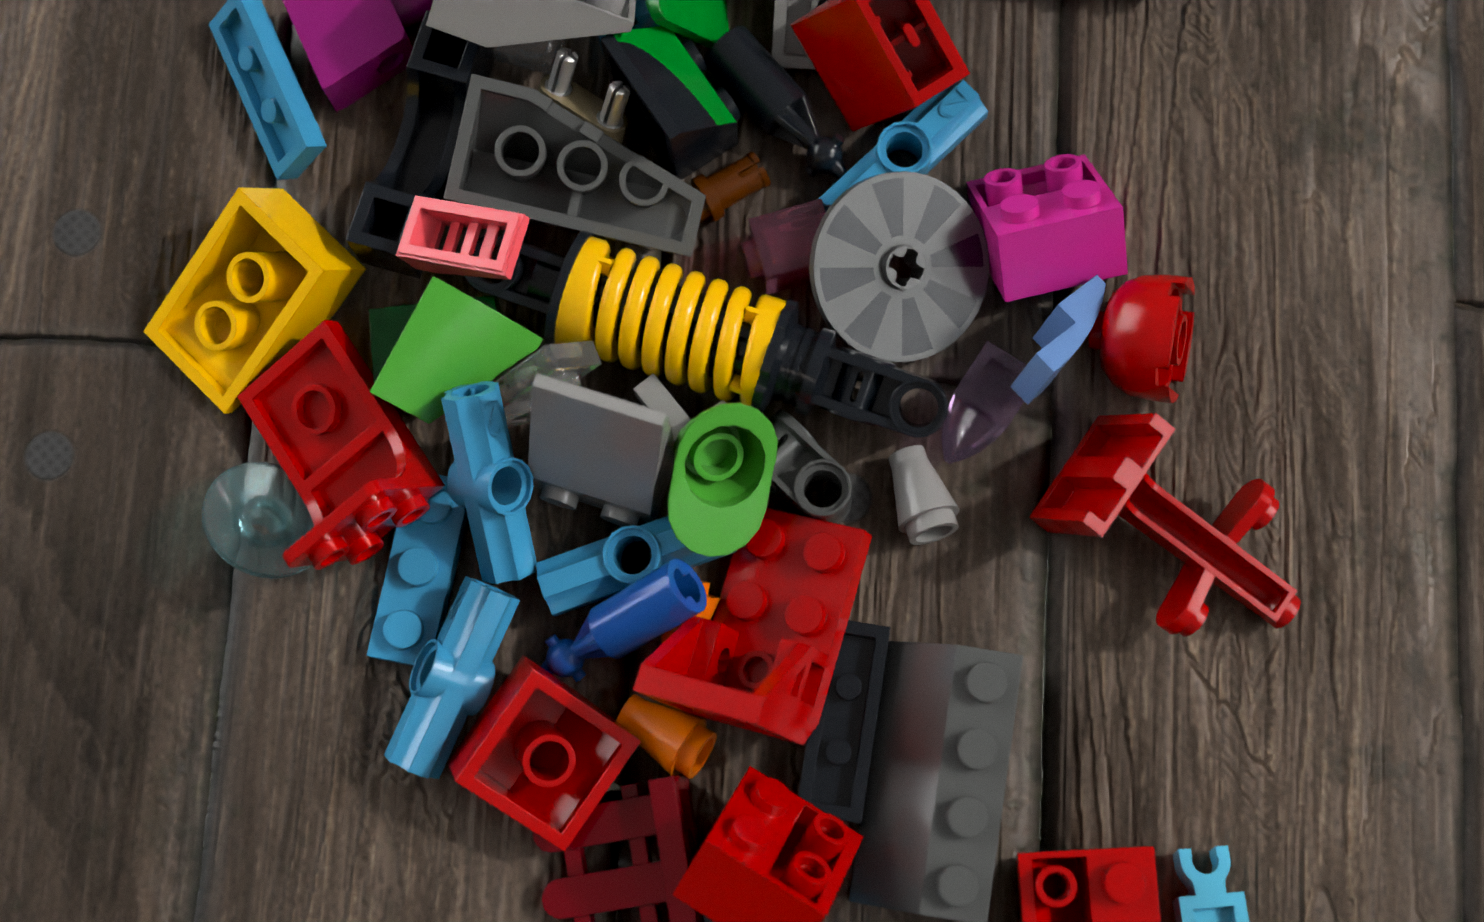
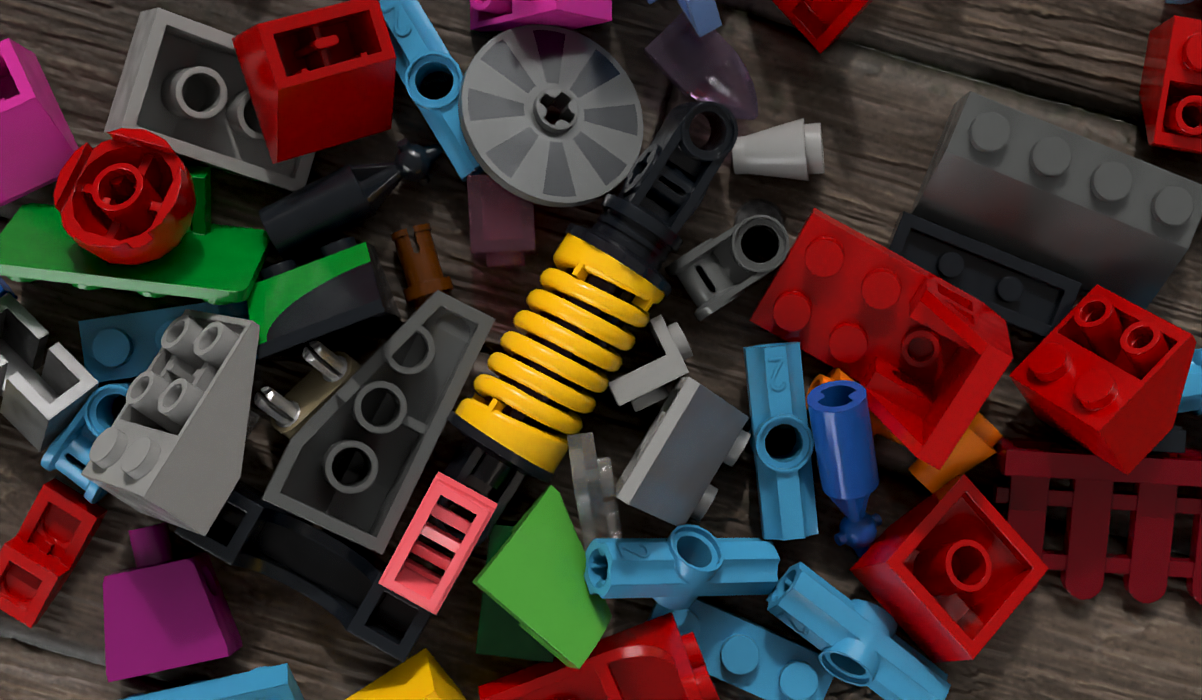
camera: 80 degrees left, 10 degrees up
(721, 478) = (735, 340): bright green piece -> none

